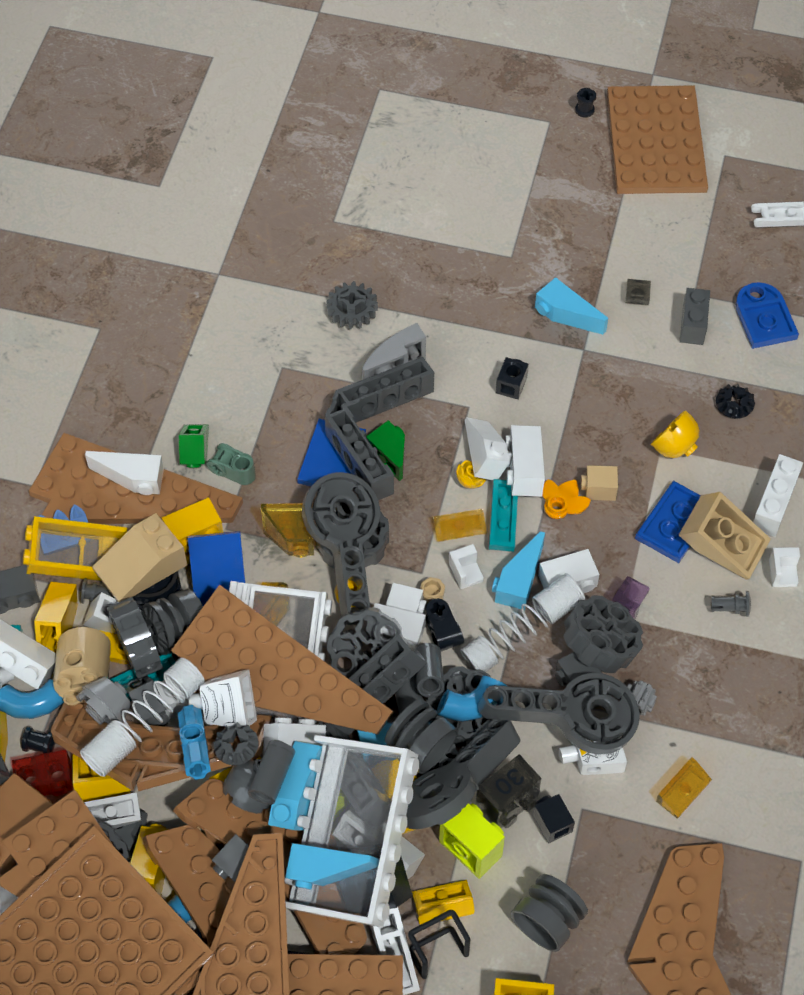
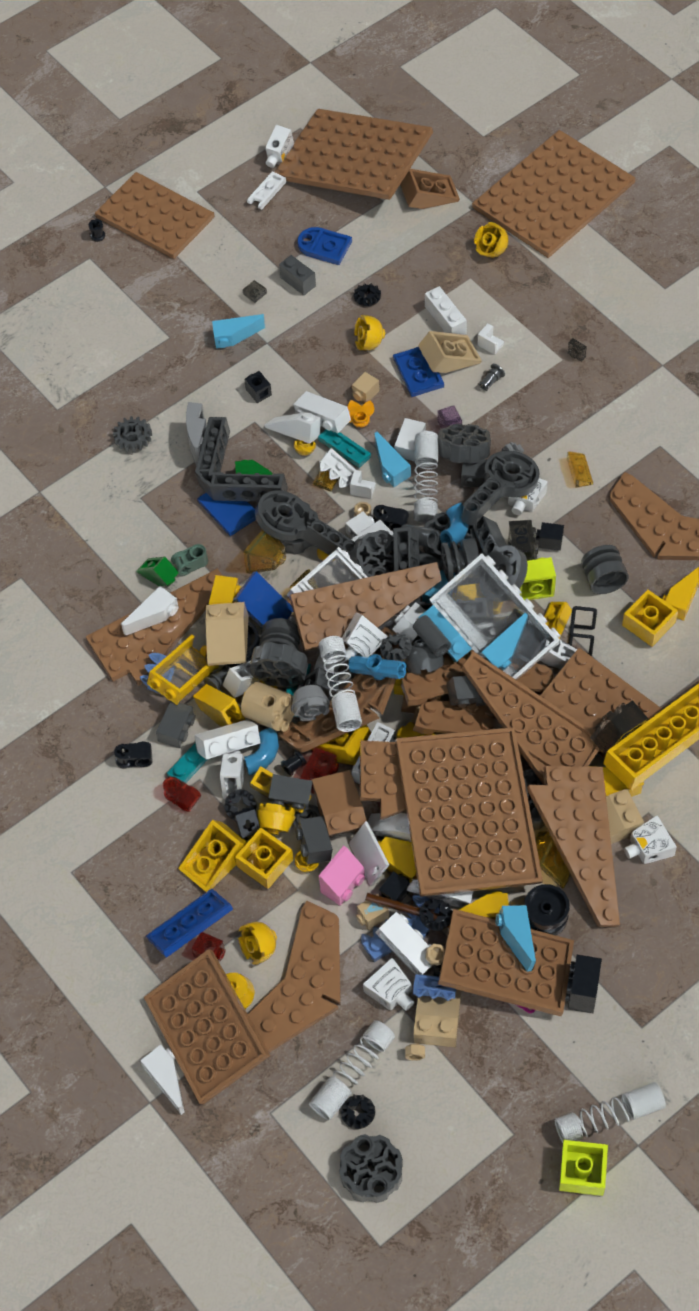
camera: 50 degrees left, 0 degrees up
(464, 525) = (337, 468): none -> white plate

